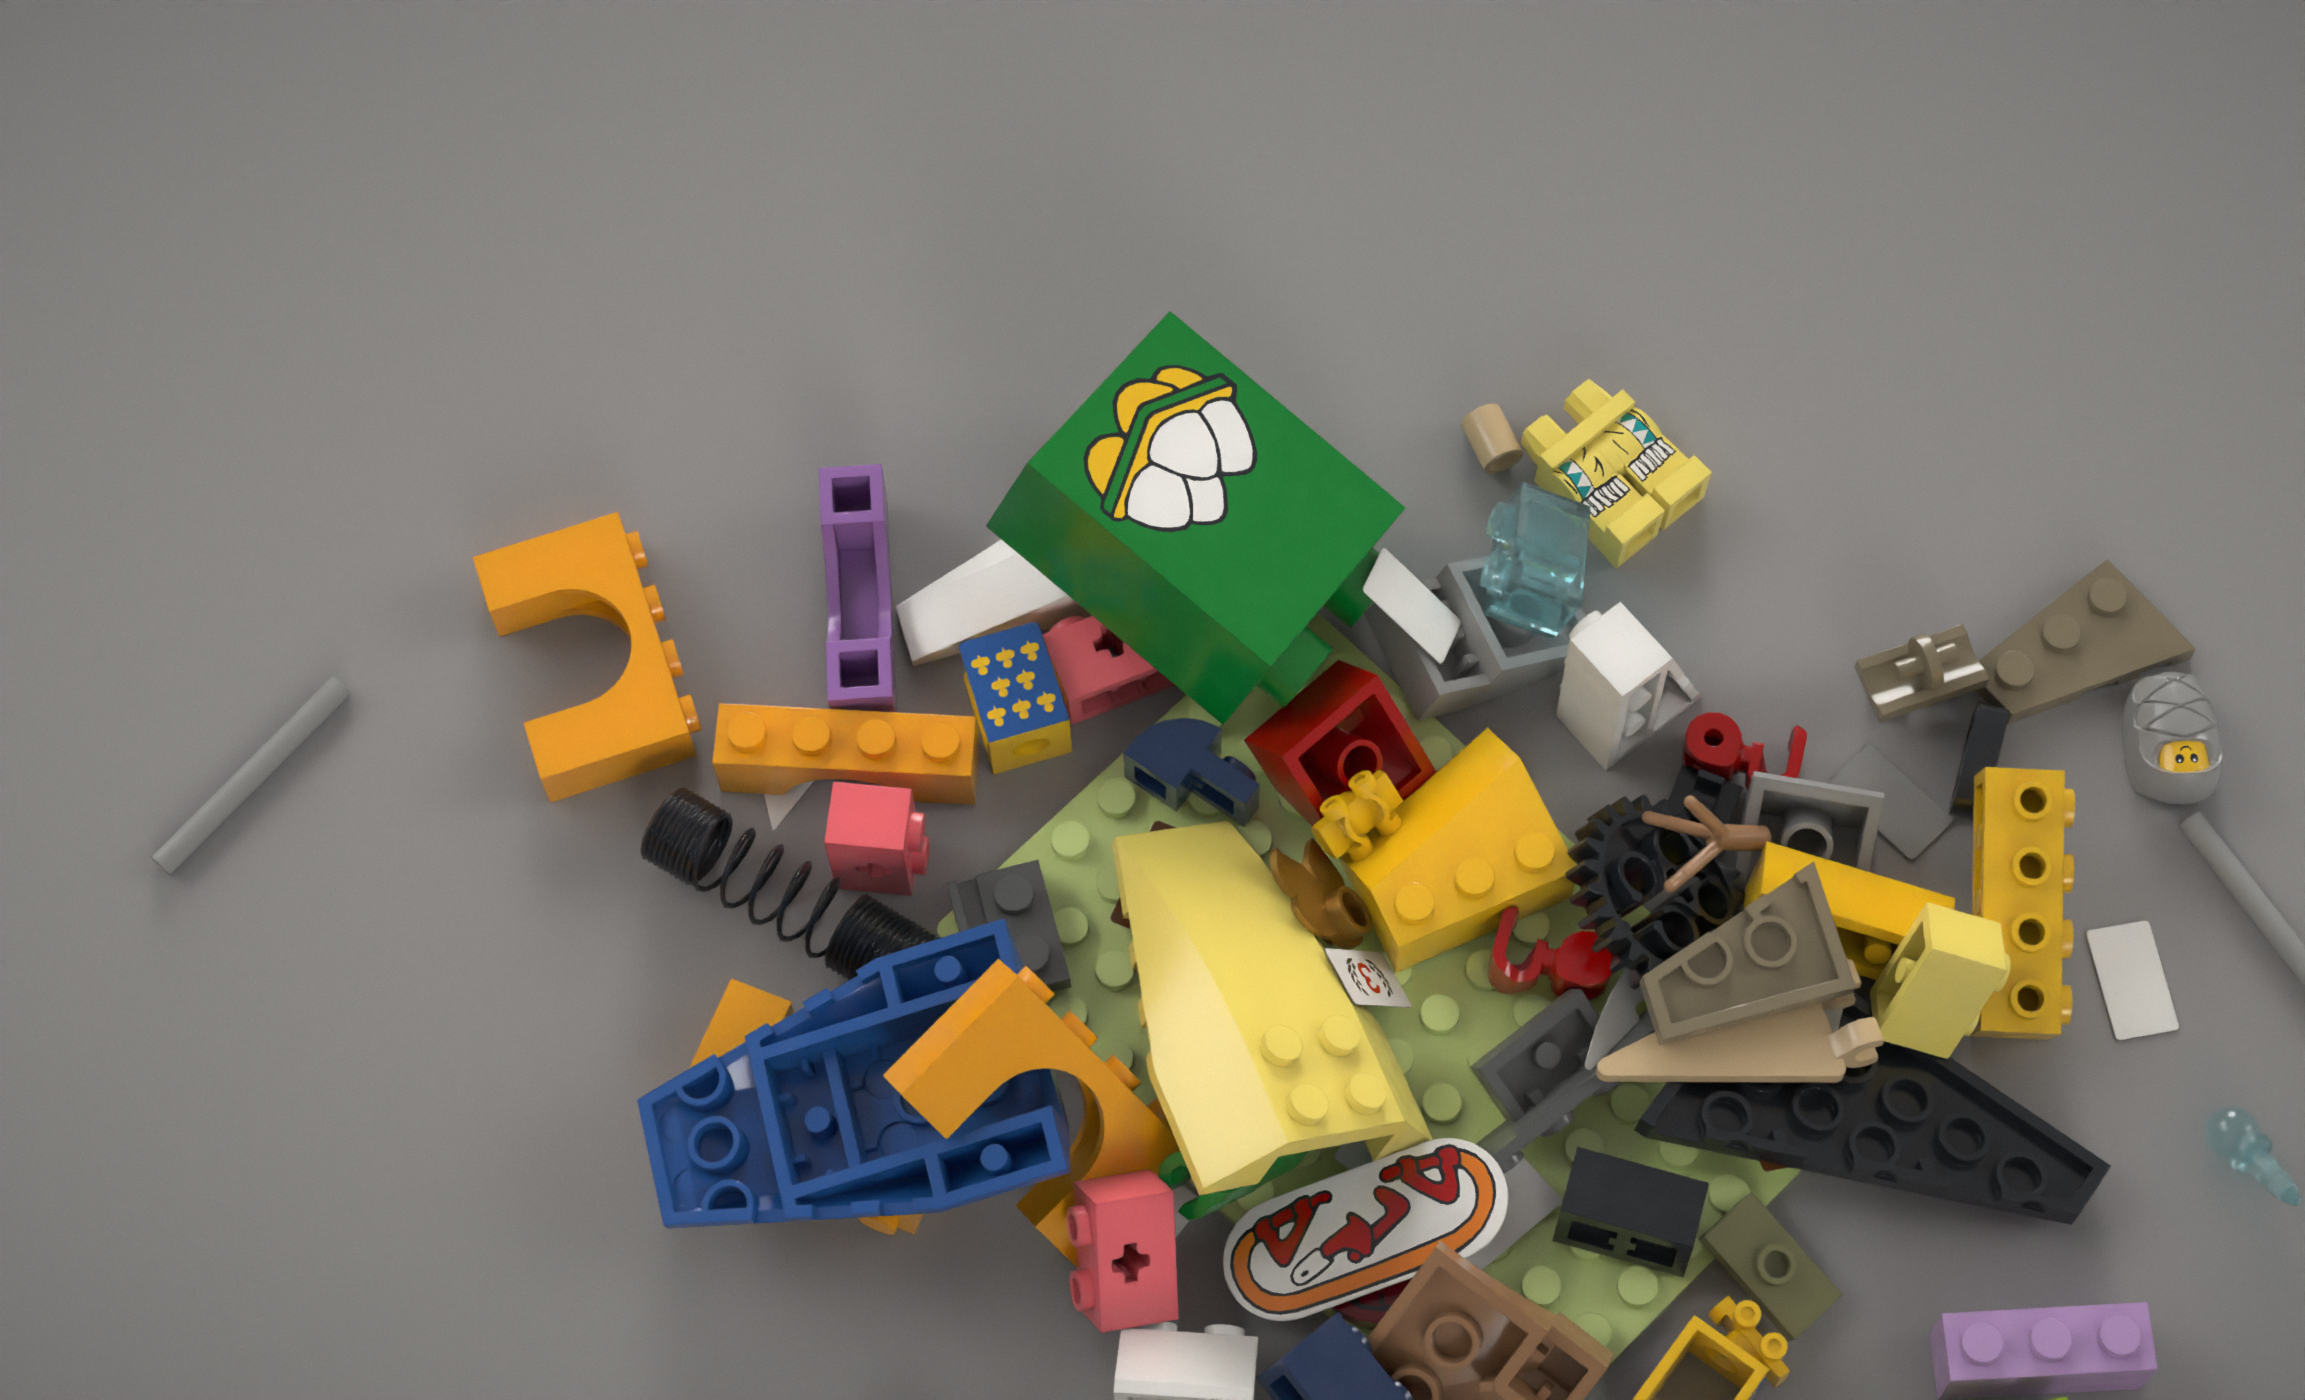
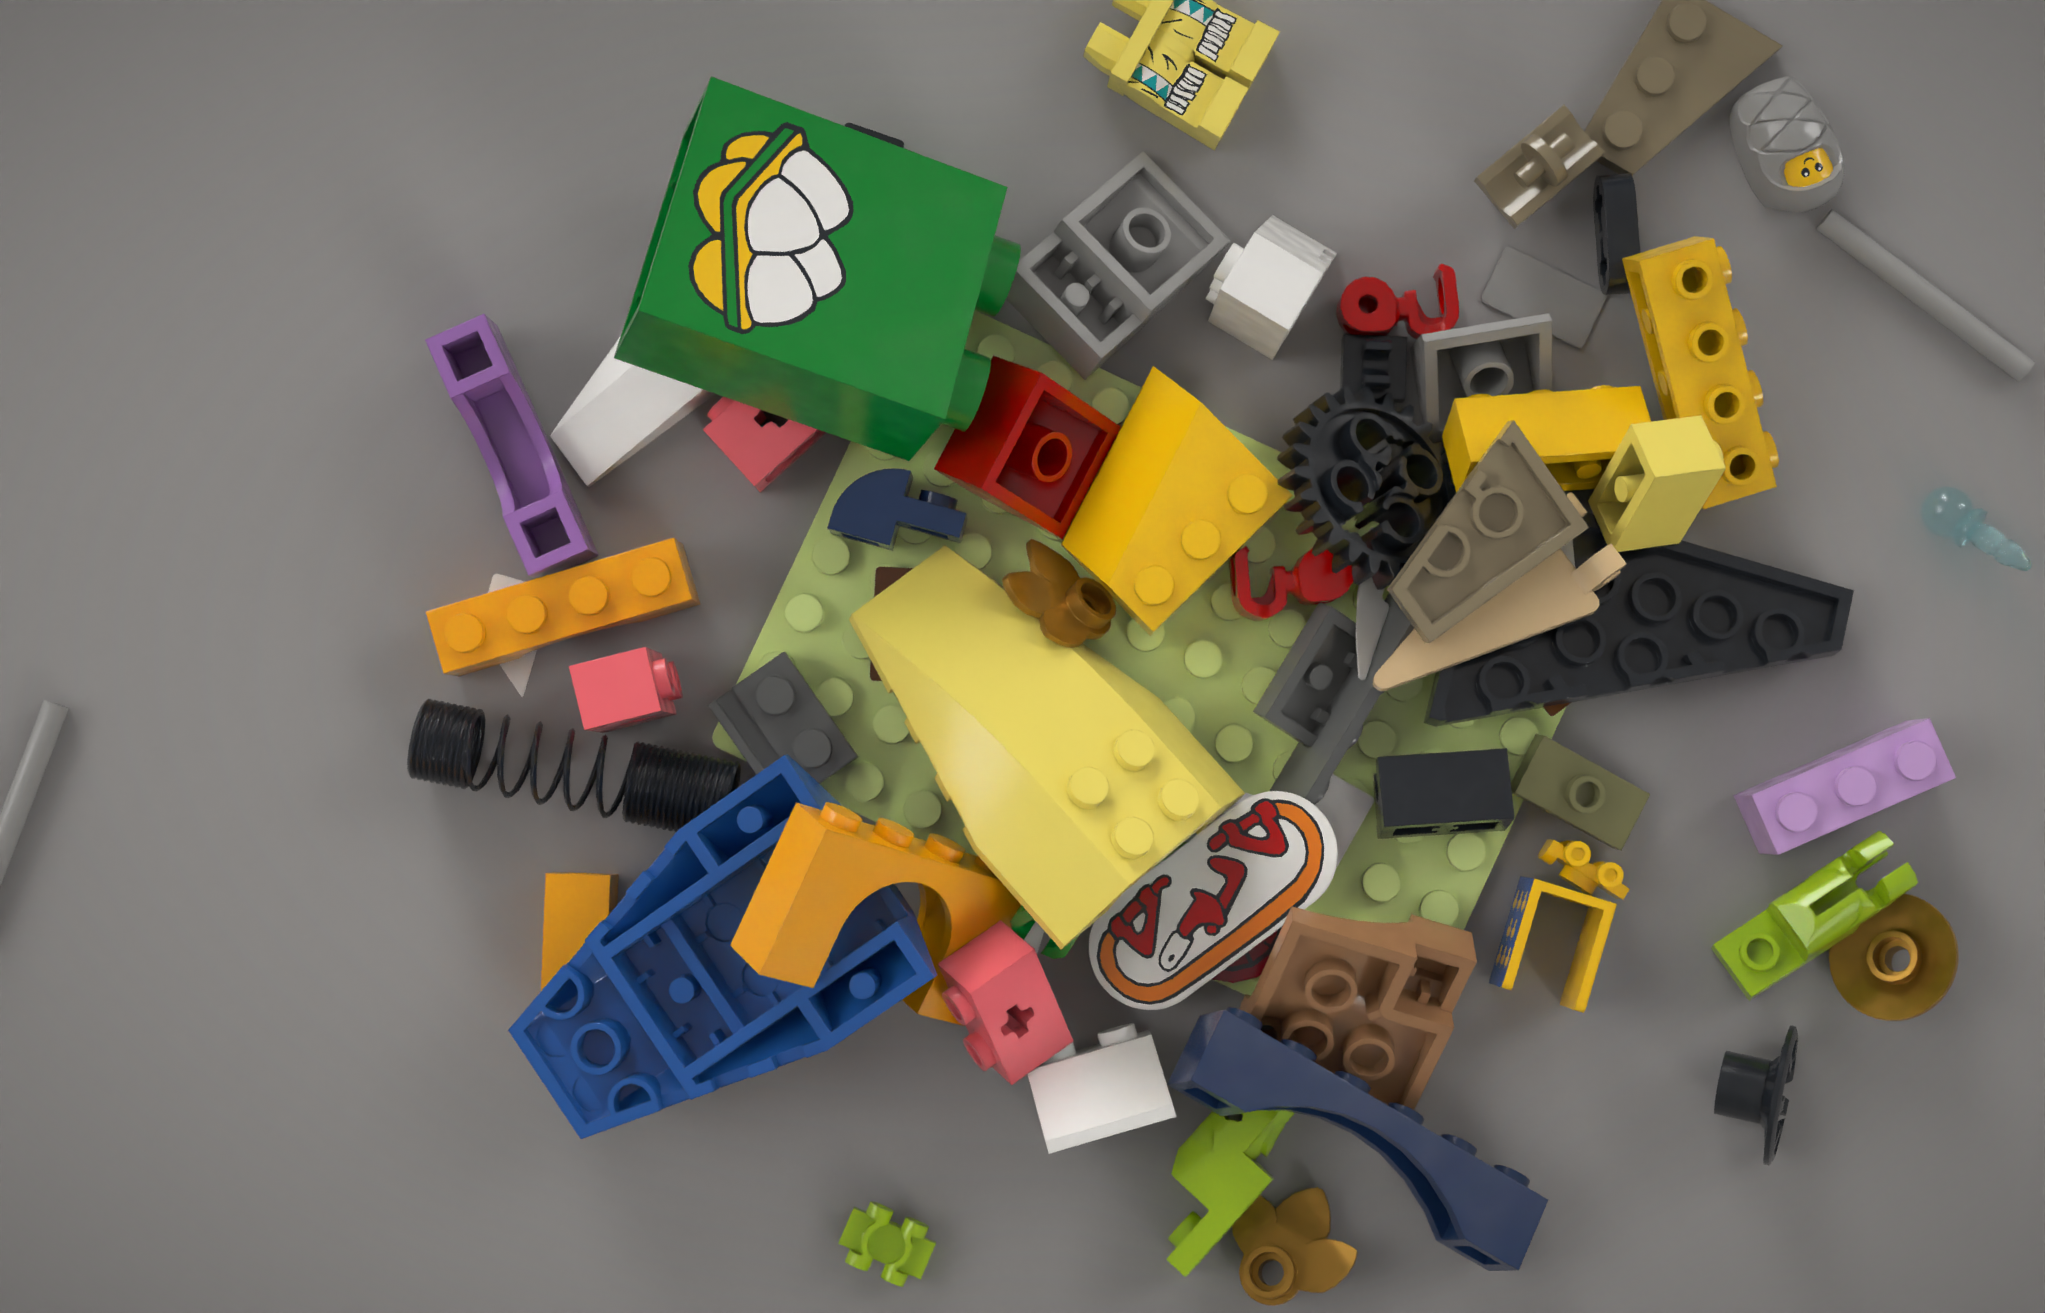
camera: 20 degrees left, 20 degrees up
(639, 719) = (357, 634): light orange arch -> none
(1015, 697) = (700, 495): piece -> none
(1355, 813) = (1063, 504): yellow piece -> none
(1368, 978) = (1132, 664): white sticker -> none
(1412, 605) = (1045, 280): white sticker -> none
(1492, 438) = (1054, 61): tan hinge -> none
(1536, 560) = (1147, 184): clear light blue brick -> none
(1716, 835) = (1409, 415): medium nougat plant -> none
(2132, 980) = (1815, 394): white sticker -> none

